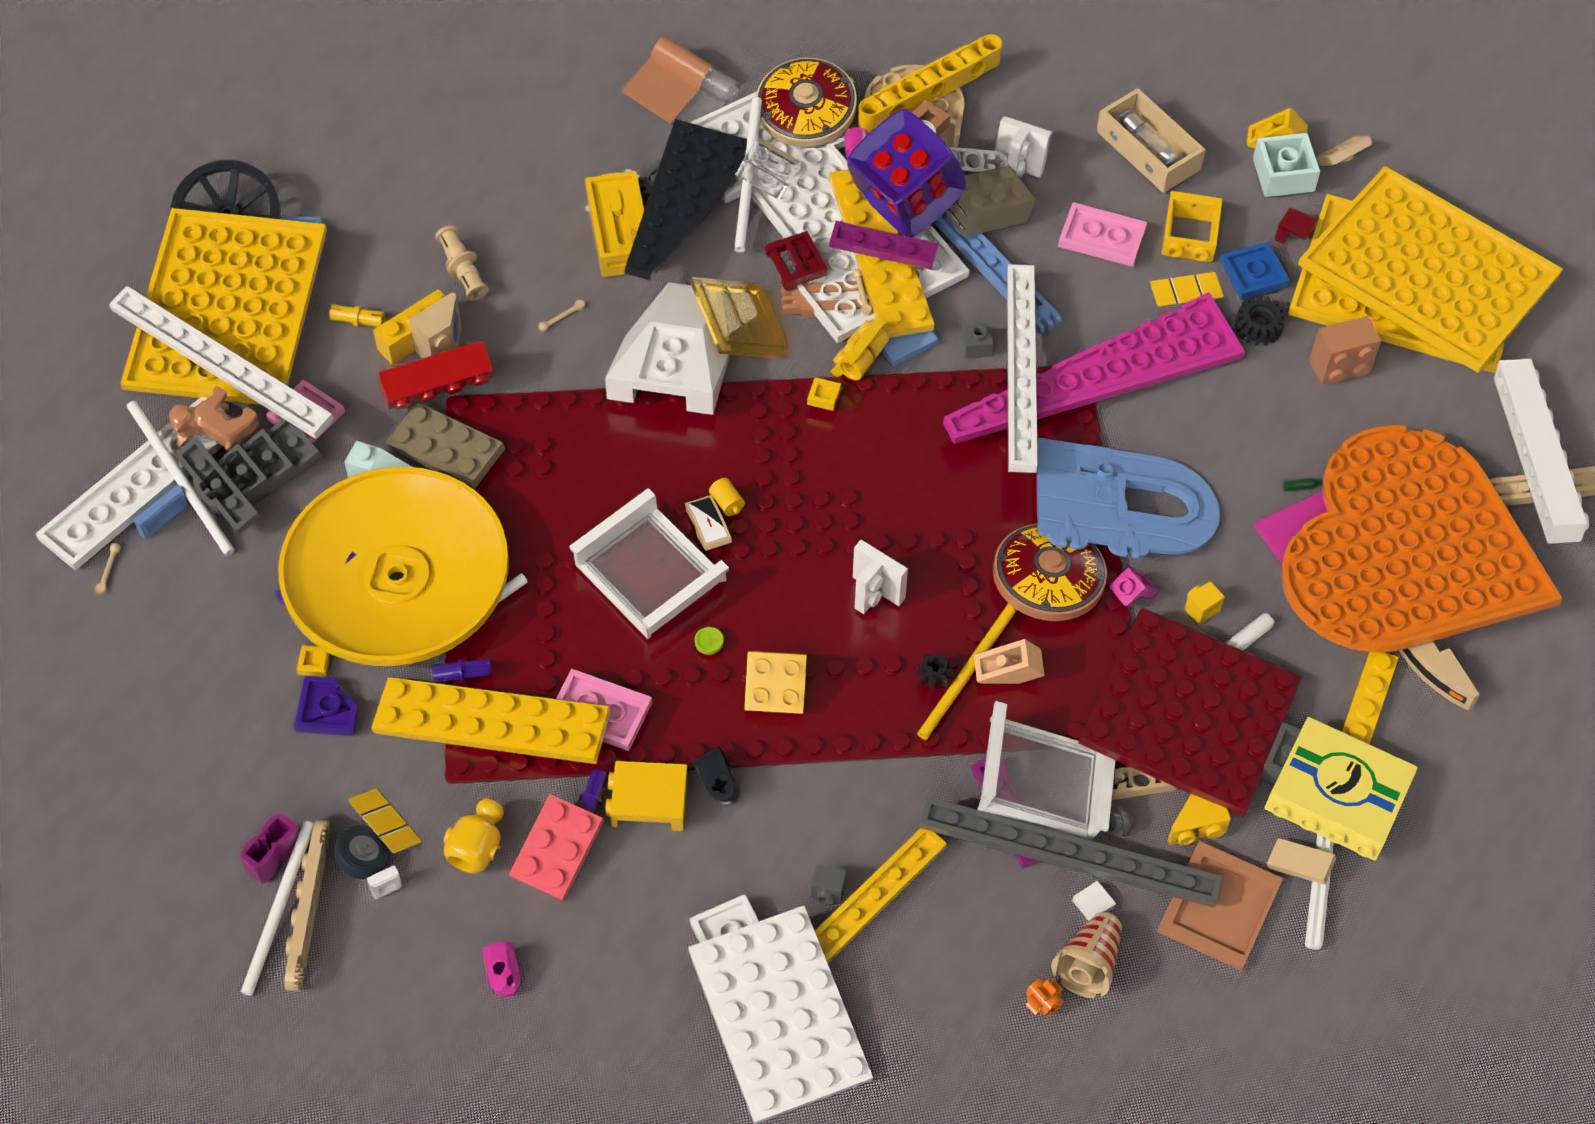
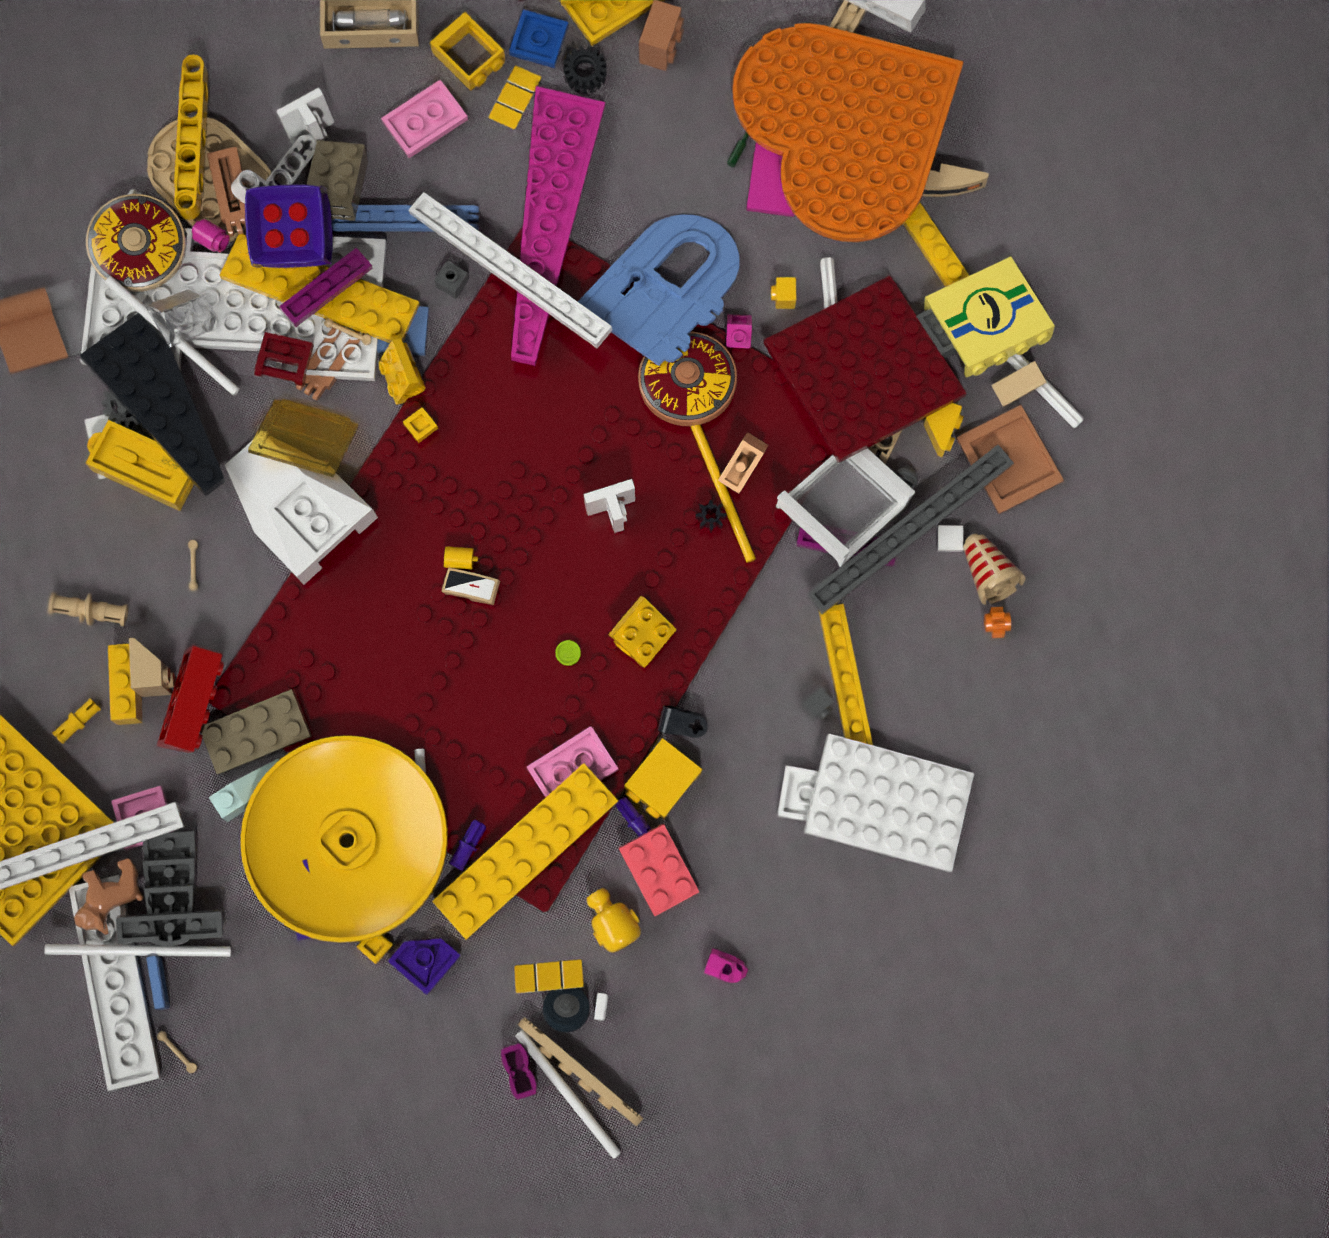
camera: 55 degrees left, 20 degrees up
(645, 564) = (478, 654): piece -> none

